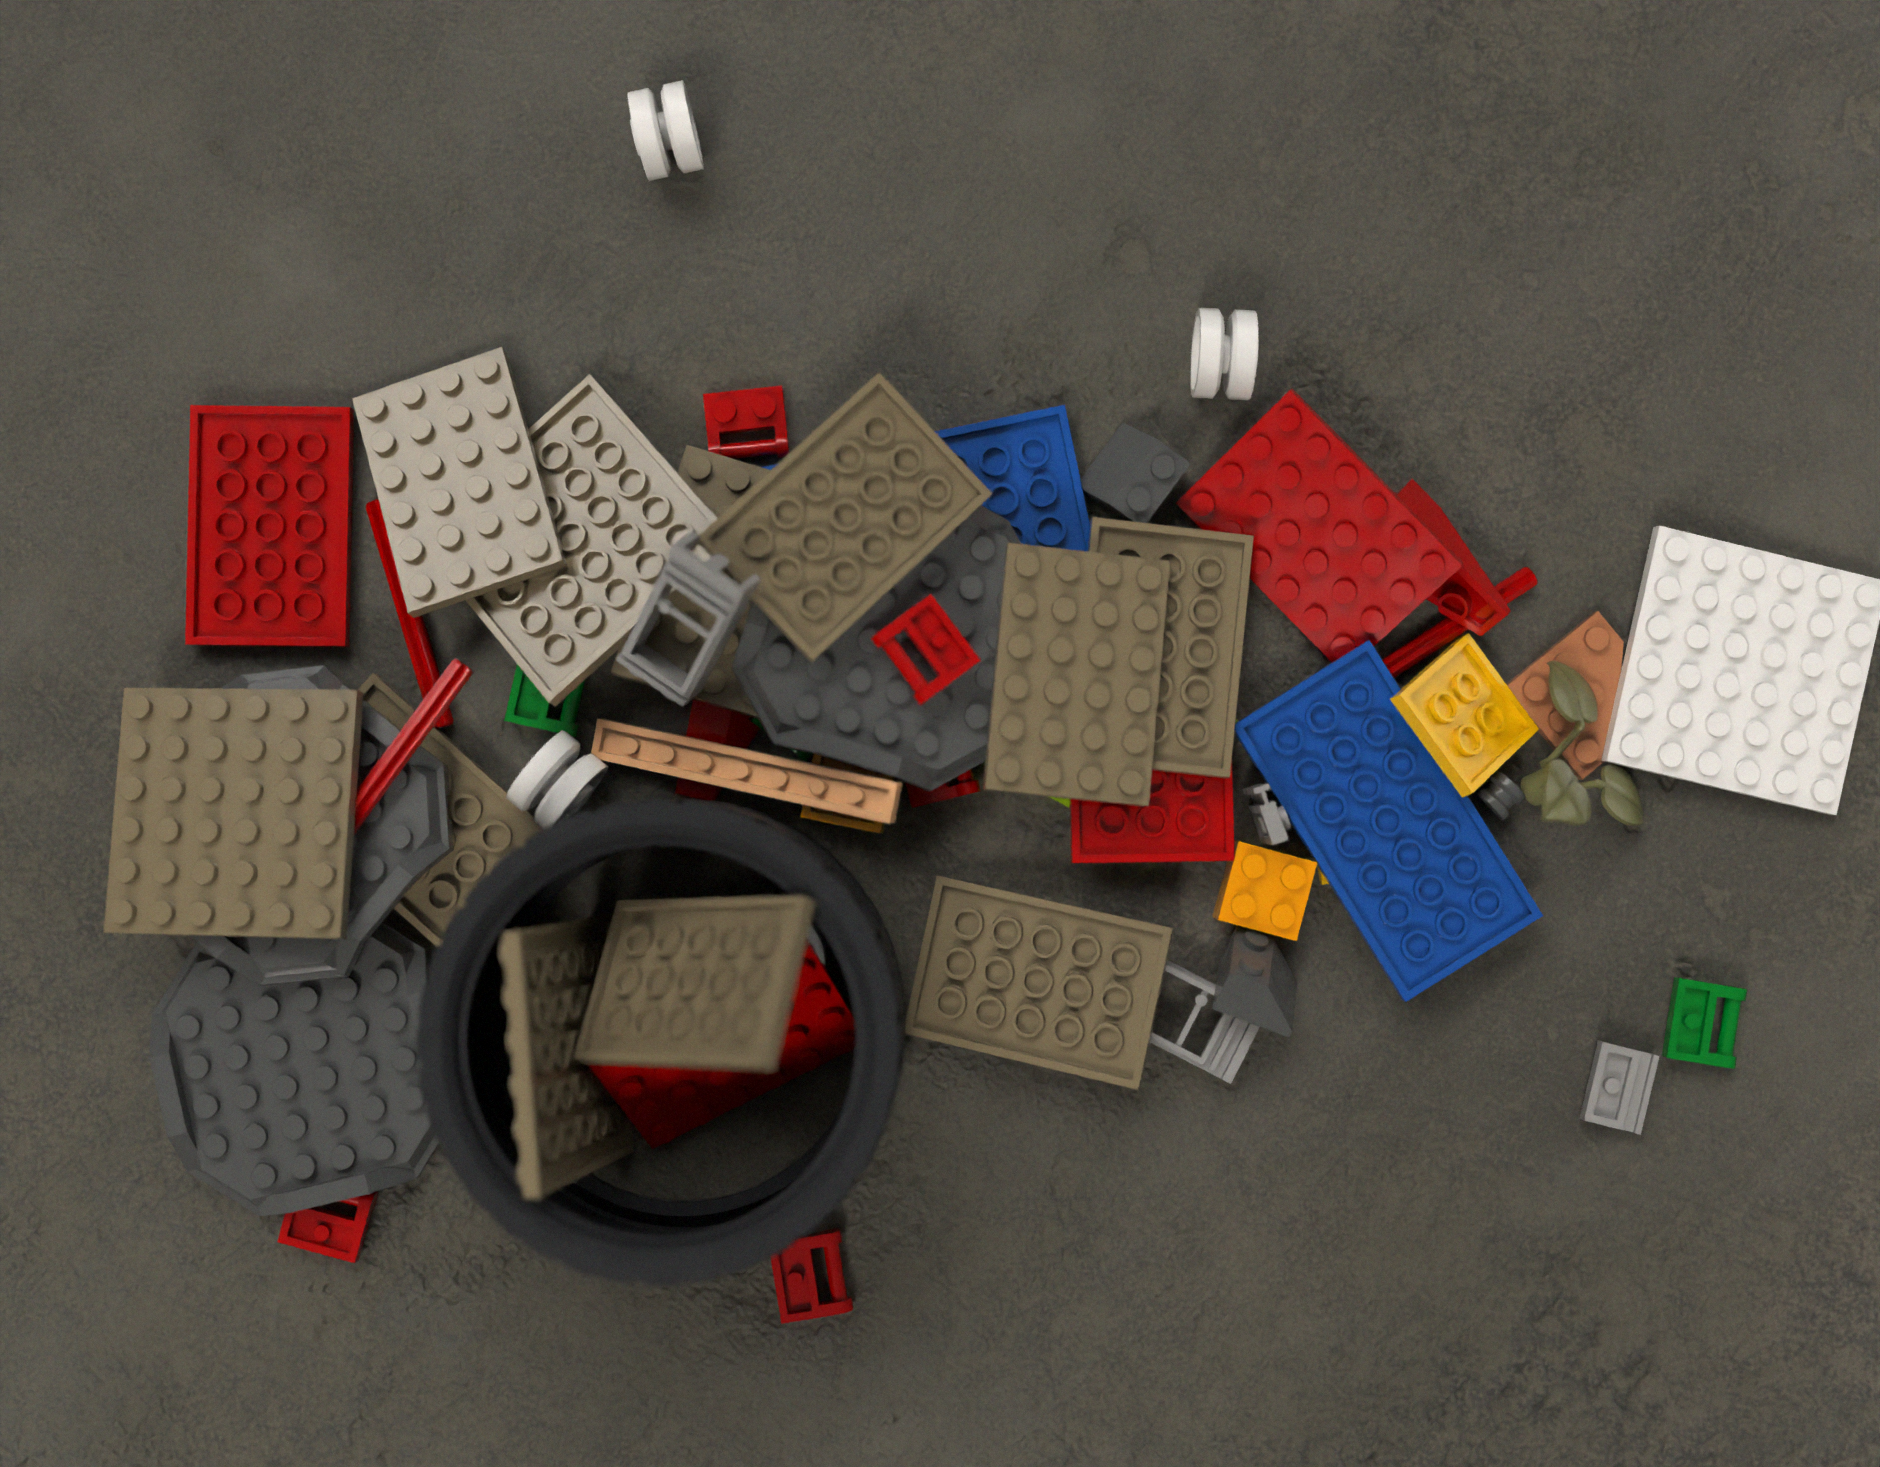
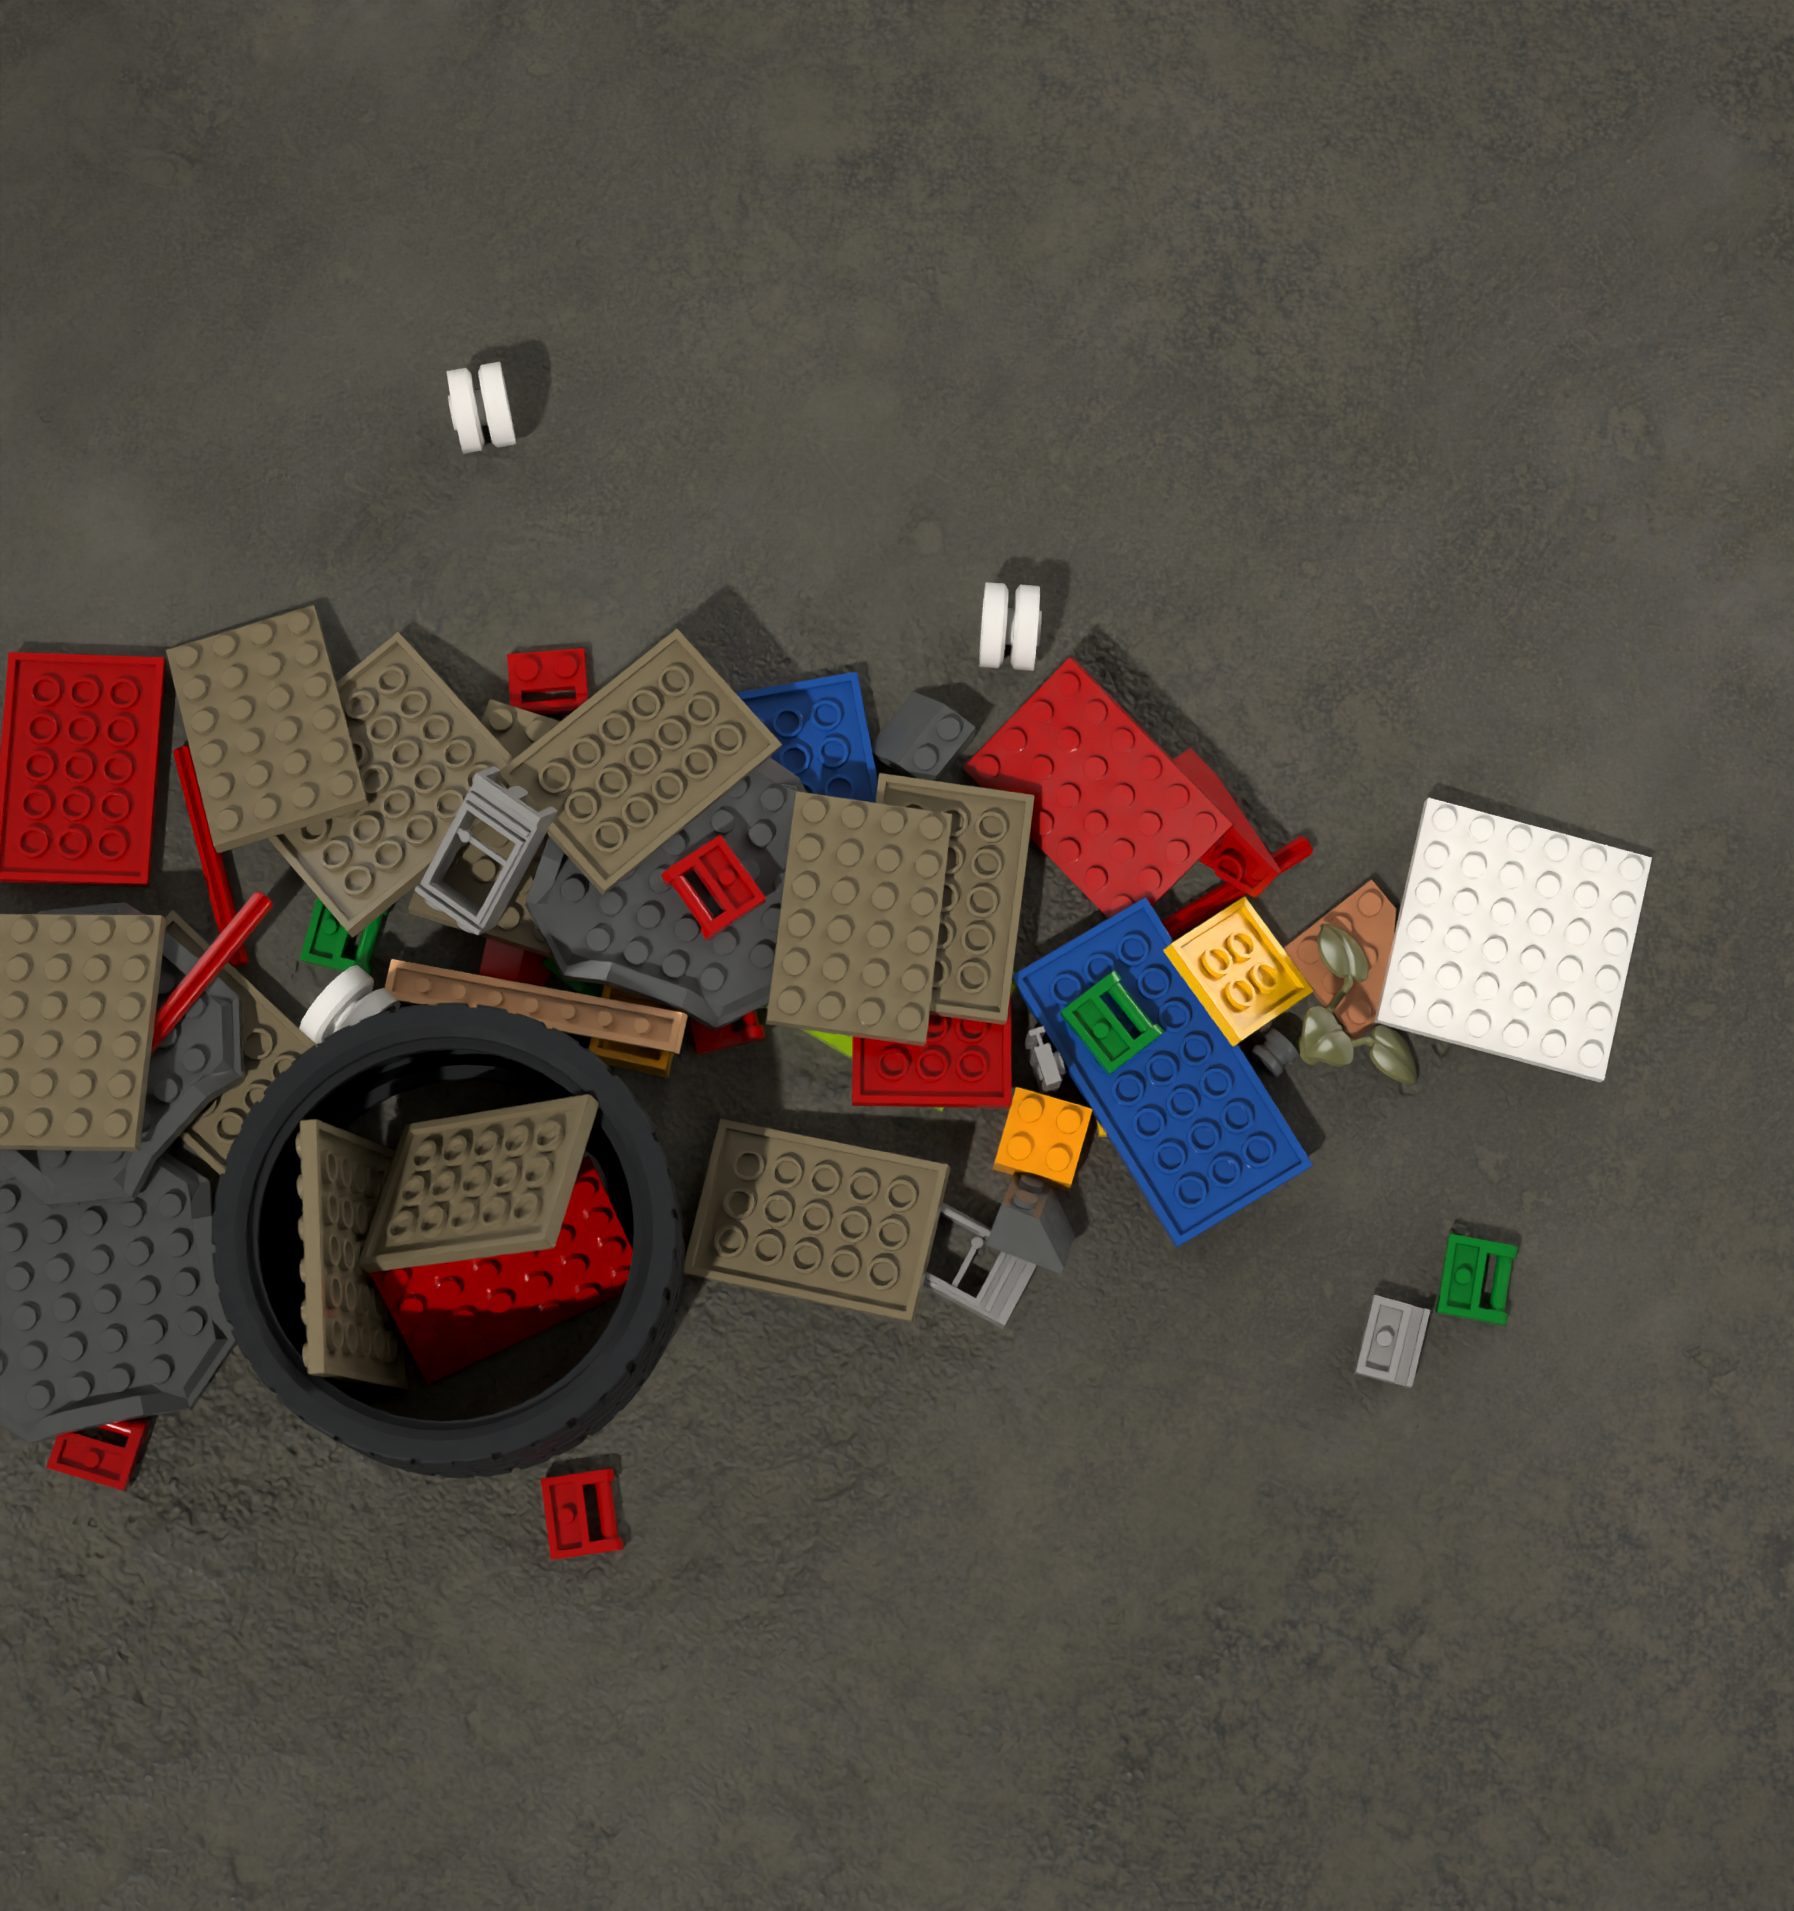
camera: 10 degrees left, 10 degrees down
(1327, 783) = (1101, 1029): none -> green plate

